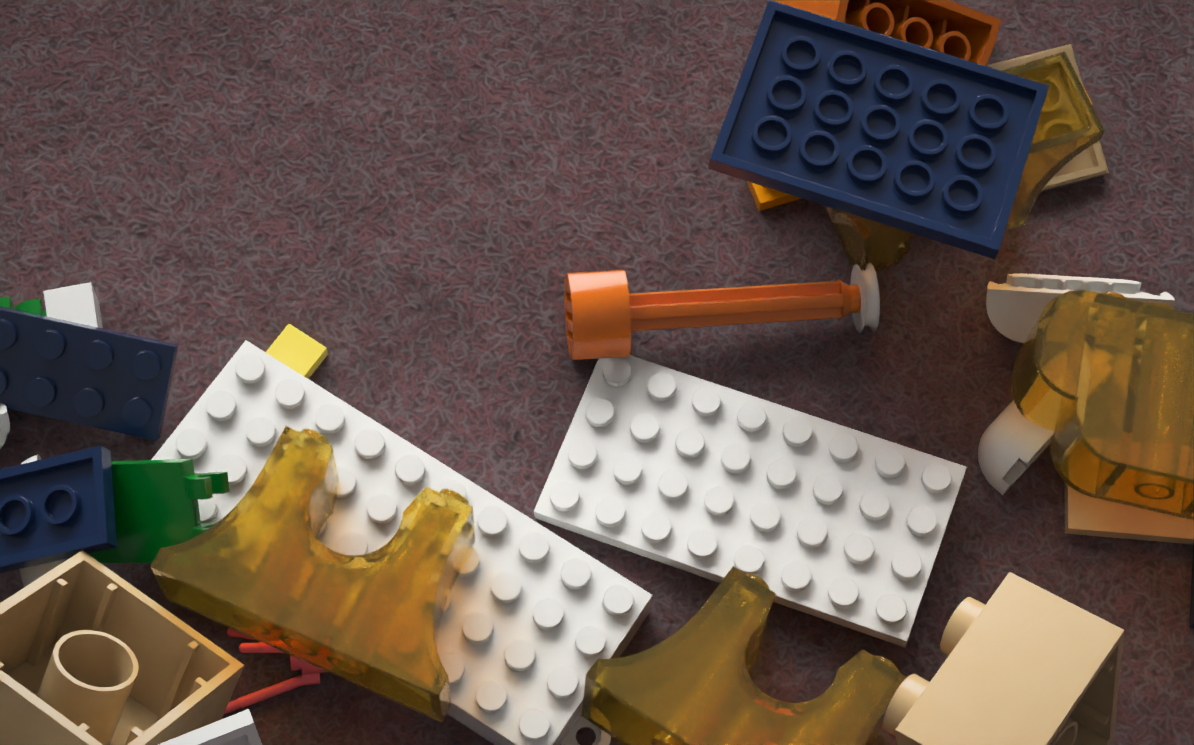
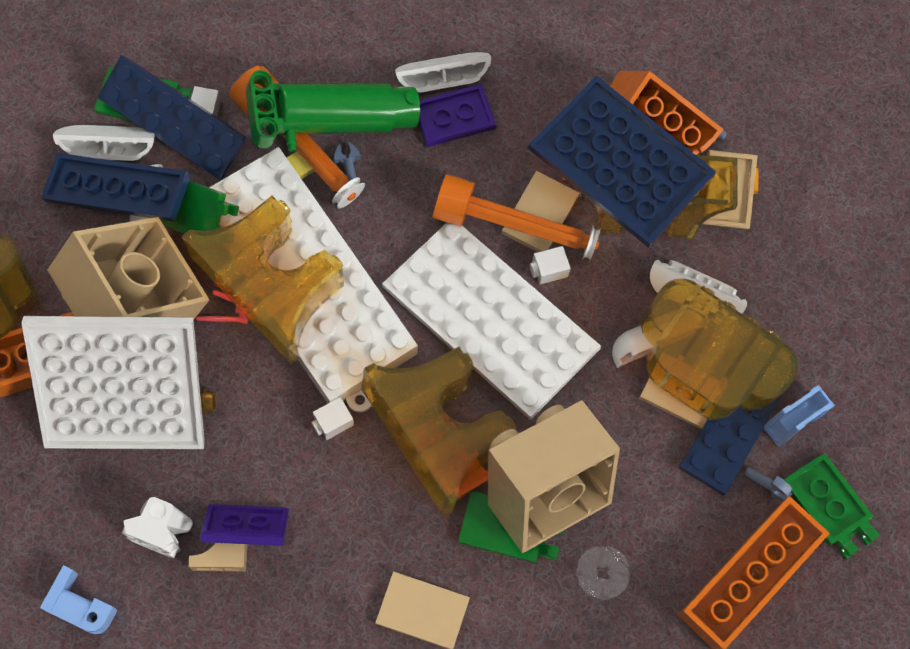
camera: 20 degrees right, 5 degrees up
(168, 262) = (307, 148): none -> orange piece
(303, 240) = (326, 109): none -> green piece
(377, 323) = (347, 162): none -> sand blue bar
(476, 103) = (444, 71): none -> white brick
(524, 171) = (455, 115): none -> dark purple tile
(751, 253) = (544, 199): none -> tan tile
(811, 363) = (550, 265): none -> white brick

